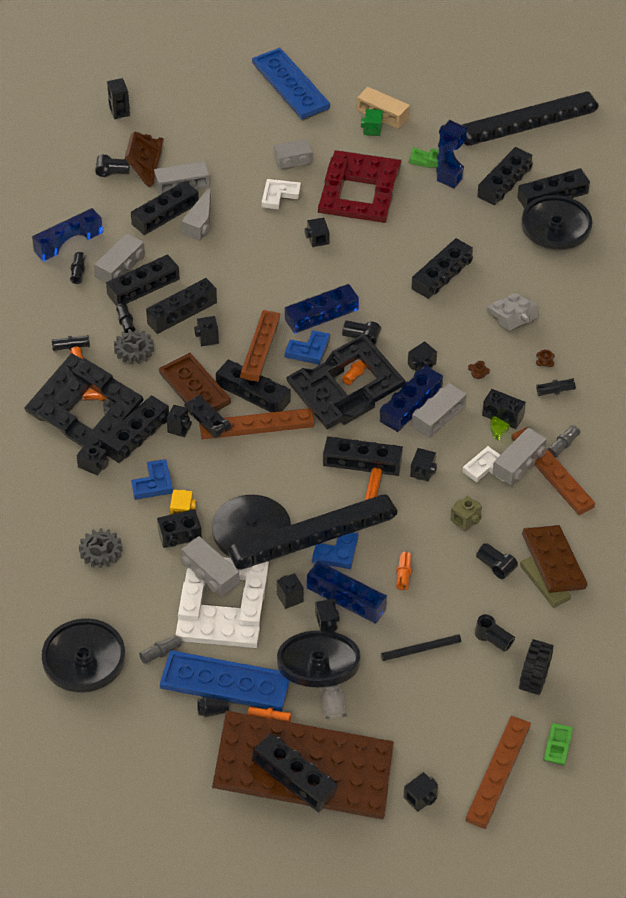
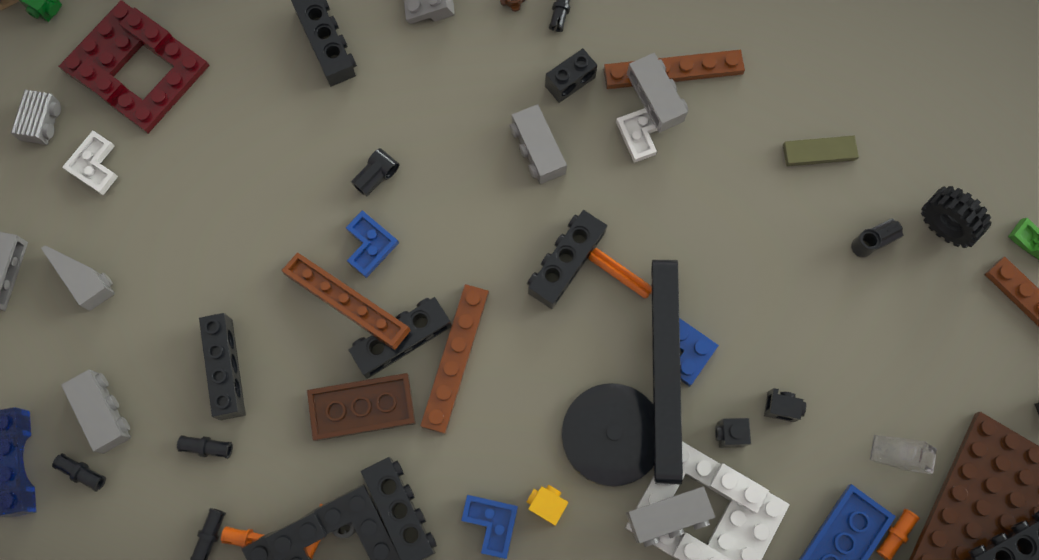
camera: 65 degrees left, 25 degrees up
(133, 346) = (257, 466): dark grey gear -> none
(143, 280) = (159, 407): black brick -> none
(164, 208) = (50, 347): black brick -> none
(178, 421) = (412, 452): black brick -> none
(178, 528) = (576, 523): black brick -> none
(207, 331) = (282, 353): black brick -> none
(207, 416) = (426, 414): black plate -> none
(317, 232) = (186, 148): black brick -> none
(318, 659) = (849, 445): black dish -> none
(321, 308) = (320, 236): clear blue brick -> none
(327, 397) = (455, 260): black piece -> none
(347, 592) = (765, 370): clear blue brick -> none
(355, 370) = (430, 204): orange pin -> none
(404, 571) = (750, 290): orange axle -> none
(411, 397) = (491, 133): clear blue brick -> none
(420, 647) = (860, 318): black bar -> none
(421, 356) = (451, 125): black brick -> none
(423, 464) = (611, 199): black brick -> none
(466, 513) = (704, 186): olive brick -> none
(478, 370) = (498, 79): reddish brown plate -> none
(498, 427) = (588, 94): clear neon green tile -> none
(500, 563) = (784, 184): black piece -> none
(554, 559) = (801, 127): reddish brown plate -> none
(564, 440) = (640, 35): dark grey pin -> none

